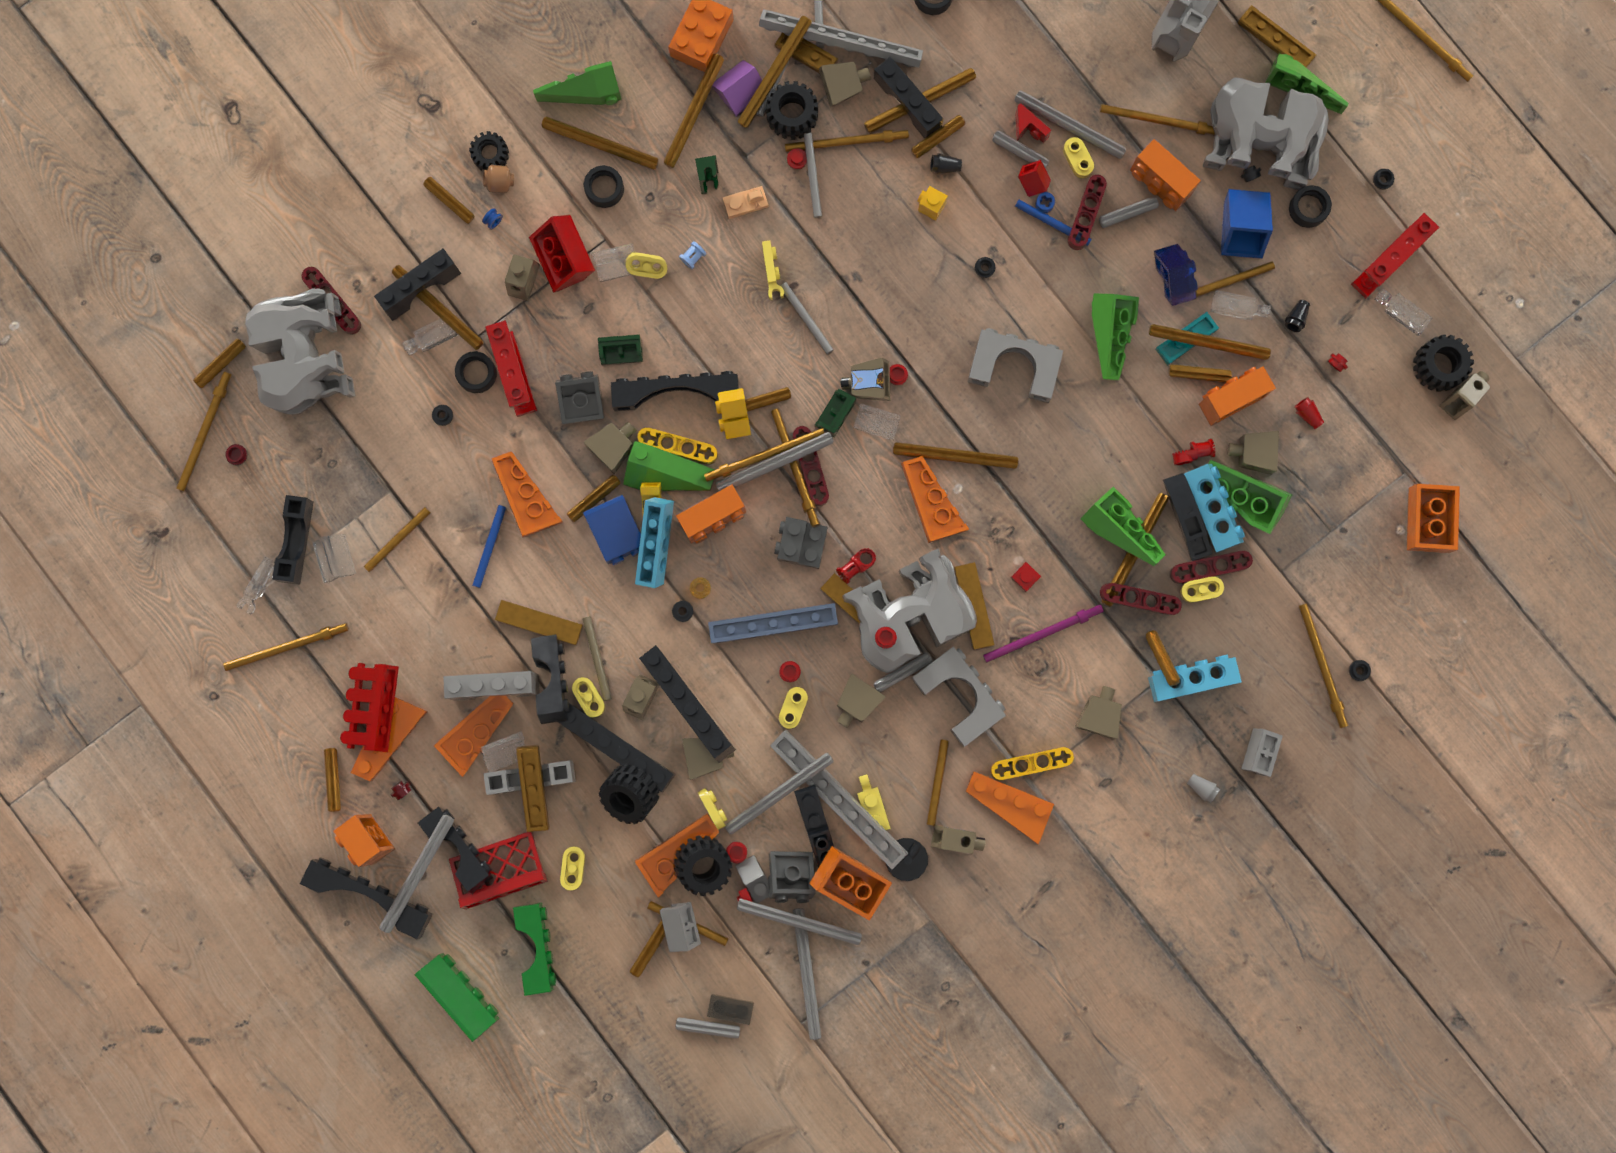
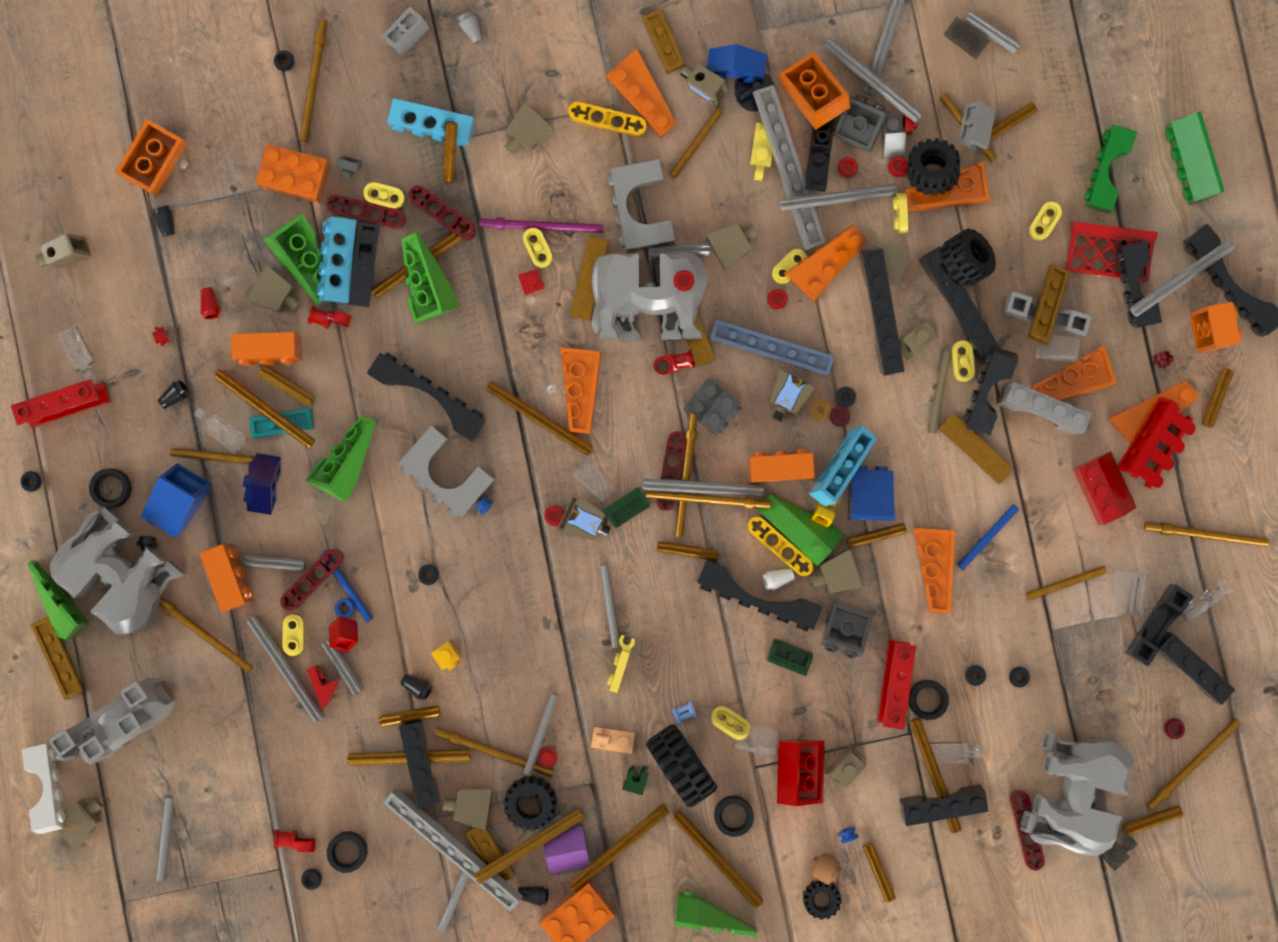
camera: 155 degrees left, 5 degrees up
(237, 320) = (1117, 854): none -> clear smoke plate
(241, 516) = (1194, 667): none -> black arch
(395, 433) = (1025, 677): none -> black plate
(399, 643) = (1104, 488): none -> red slope
(665, 415) = (777, 578): none -> white cone
(672, 201) = (681, 765): none -> black tyre
(679, 591) = (839, 416): none -> dark red plate
(734, 414) = (717, 548): yellow piece -> none
(736, 586) = (788, 395): none -> torso
(749, 34) = (534, 894): none -> black cone
(762, 721) = (821, 267): none -> orange wing
(784, 828) = (847, 167): none -> red plate
(937, 874) = (737, 62): none -> blue brick
(965, 353) = (484, 505): none -> blue bush
(1016, 864) = (663, 41): none -> pearl gold tile
(1024, 419) = (390, 373): none -> black arch
(1037, 608) = (538, 248): none -> light yellow plate
(1249, 601) = (349, 166): none -> dark grey tile
(1296, 568) = (293, 173): none -> orange brick
(1391, 469) = (164, 219): none -> black cone
(1457, 355) = (53, 283): black tyre -> none

